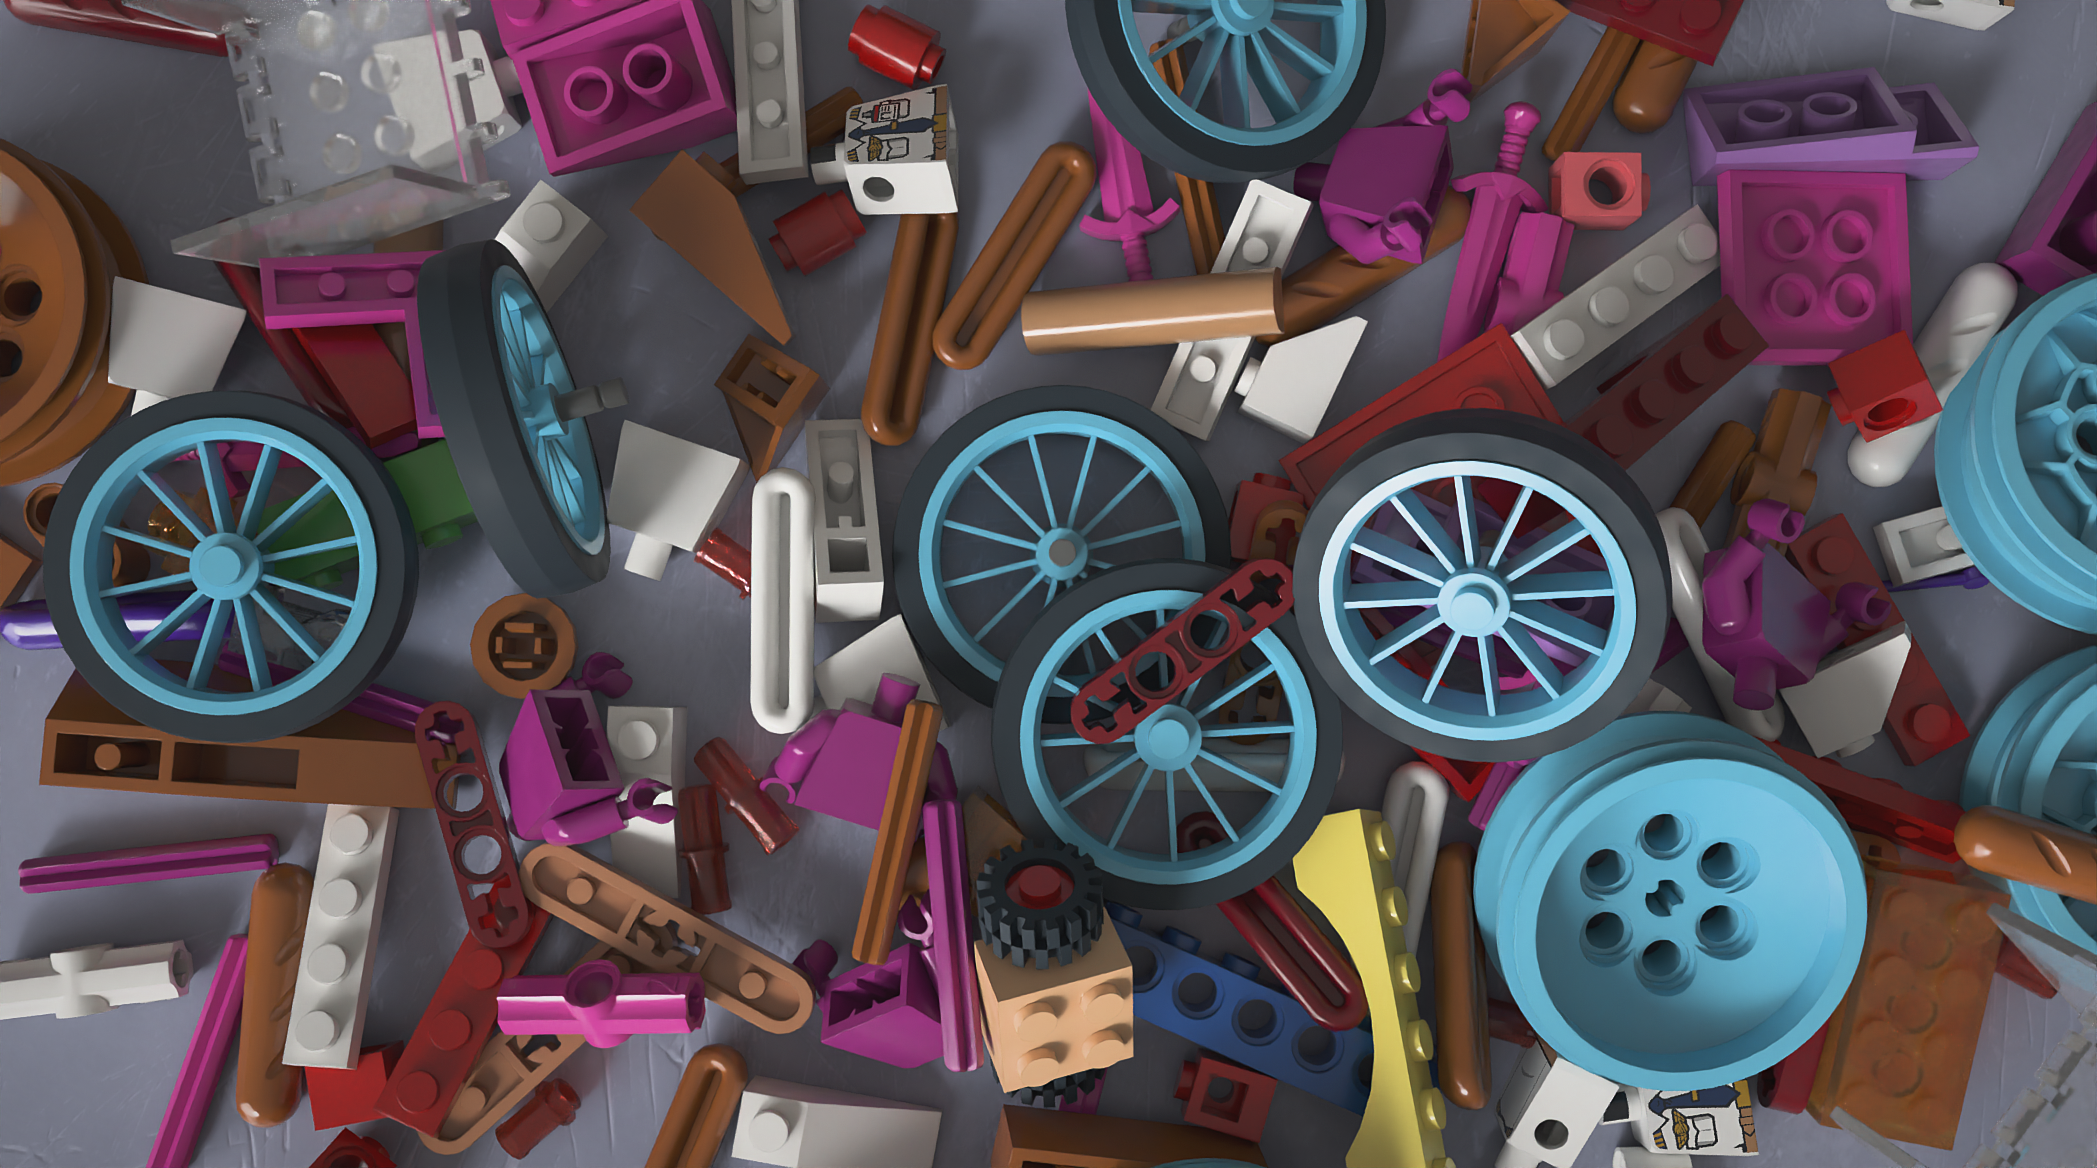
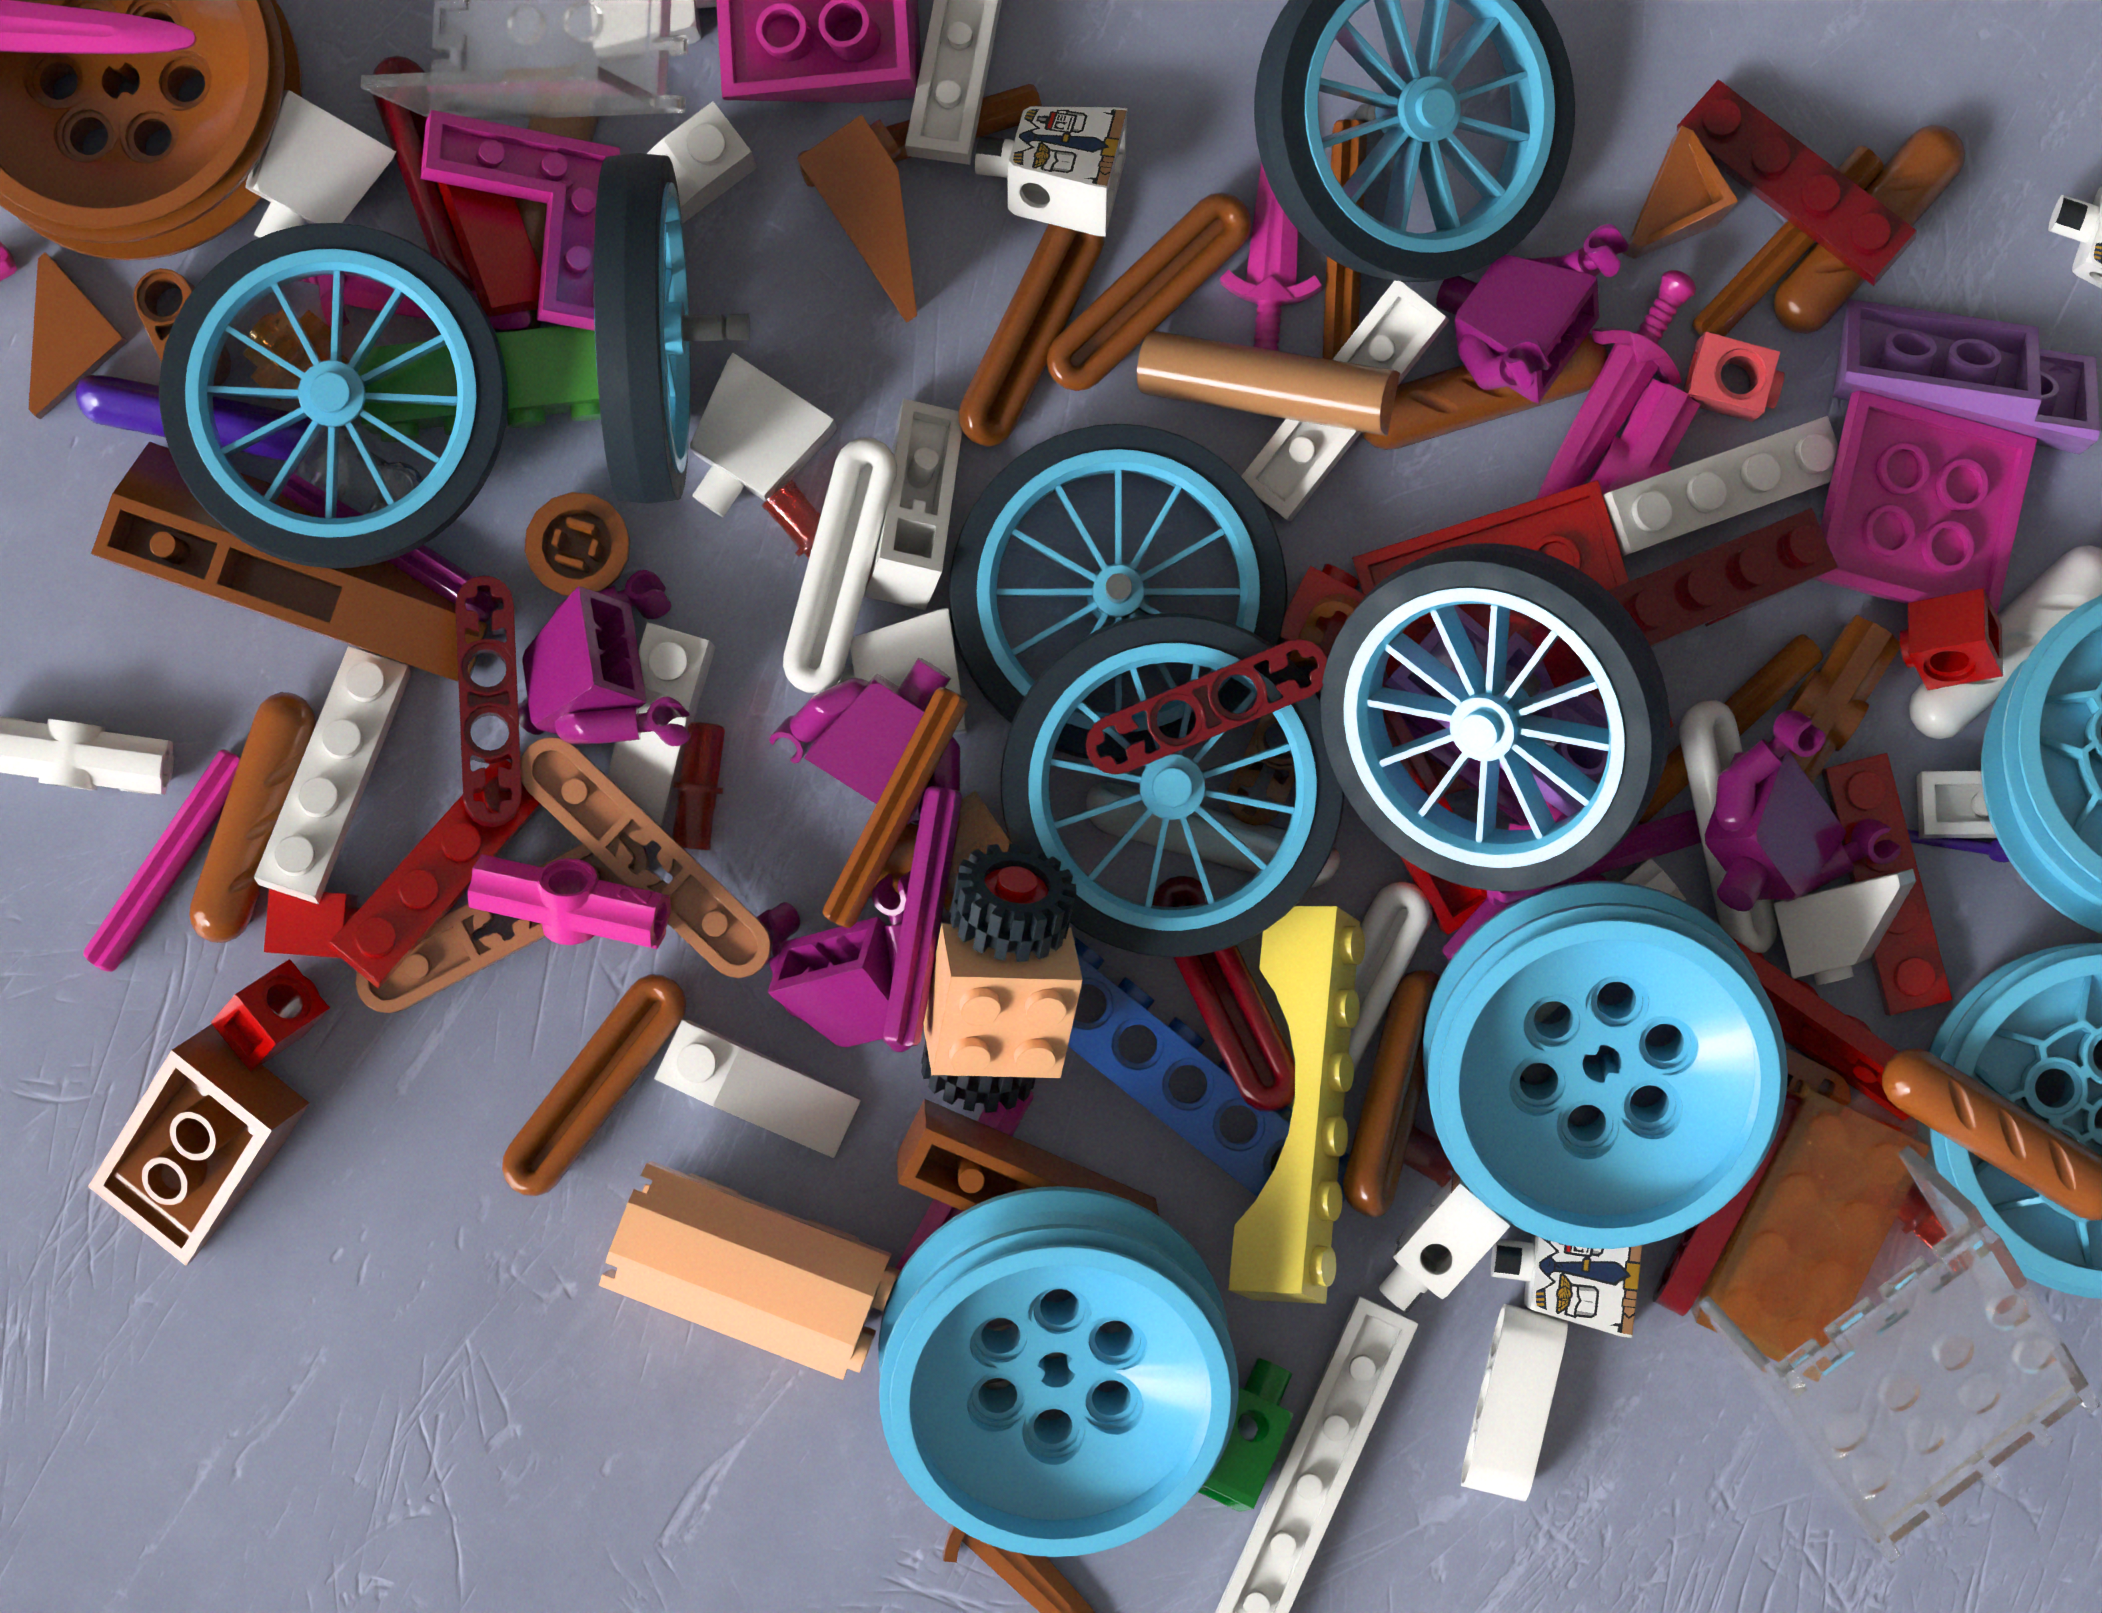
camera: 15 degrees right, 0 degrees up
(148, 863) = (159, 660): magenta axle -> none
(552, 1106) = (473, 1001): clear red pin -> none
(744, 797) = (751, 745): clear red axle -> none
(768, 401) = (872, 370): dark orange slope -> none
(816, 232) = (963, 219): red brick -> none
(897, 46) = (1088, 58): red brick -> none
(1237, 1113) = (1159, 1164): red brick -> none
(1298, 379) = (1392, 483): white slope -> none

